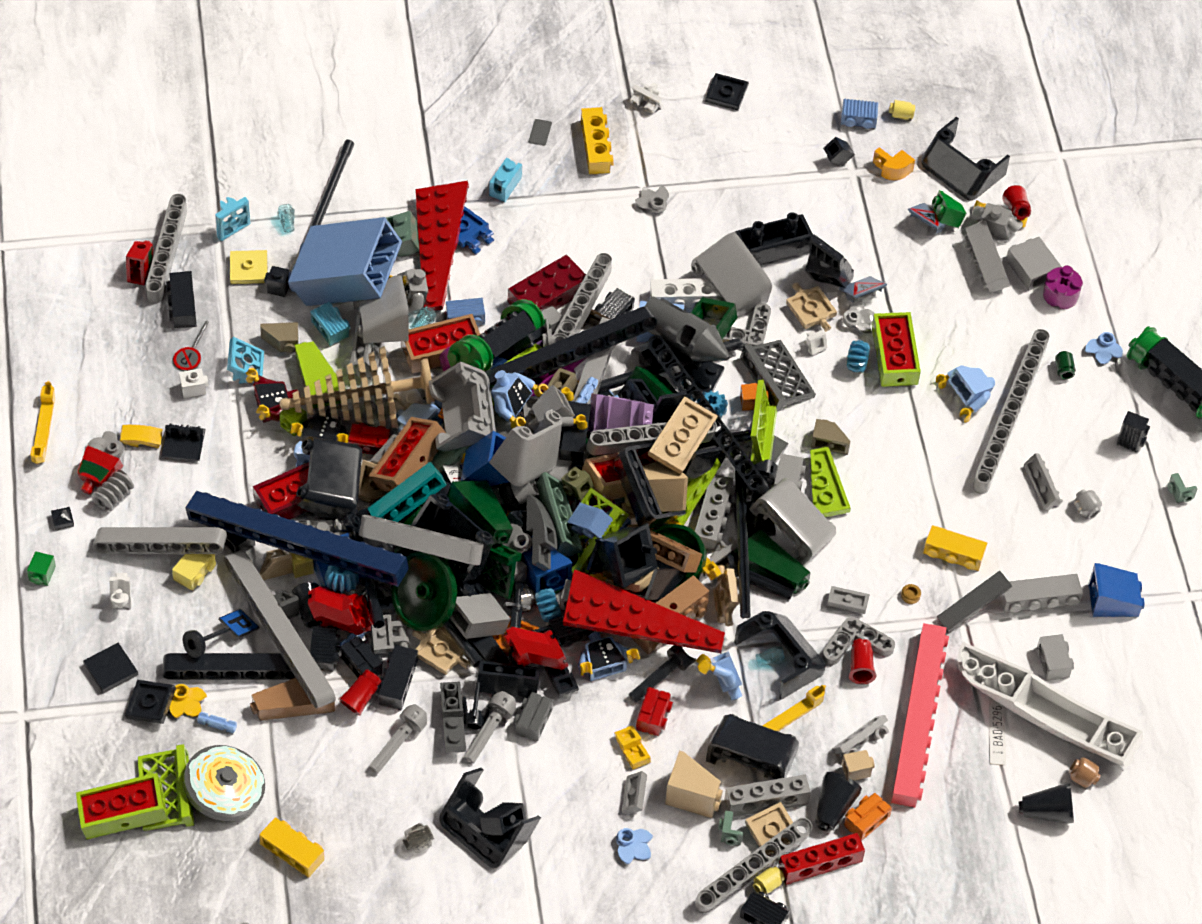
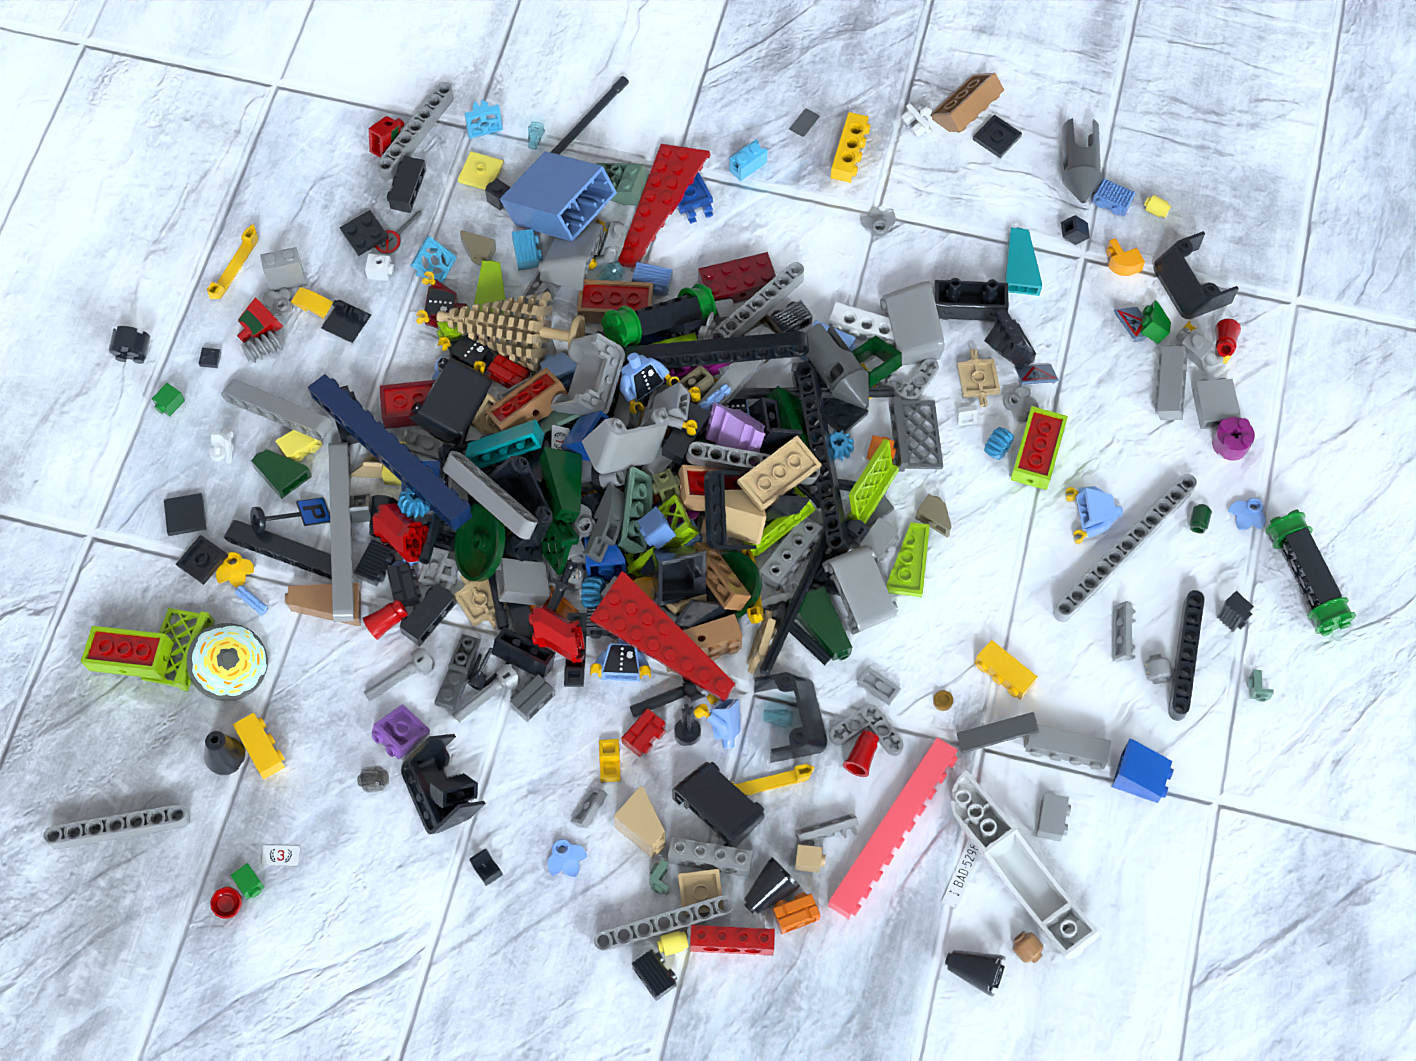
camera: 25 degrees right, 10 degrees up
(102, 411) = (283, 269): none -> light grey brick
(160, 357) = (364, 233): none -> black plate
(188, 598) = (280, 472): none -> dark green slope
(260, 865) = (223, 753): none -> black cone
(422, 788) = (399, 732): none -> medium lavender plate
(563, 878) = (485, 867): none -> black bracket
(686, 68) = (967, 102): none -> medium nougat slope
(694, 695) = (687, 730): none -> black piece
(804, 195) = (1021, 264): none -> teal slope
(823, 97) = (1081, 164): none -> dark grey piece
(1107, 483) = (1186, 663): none -> black beam

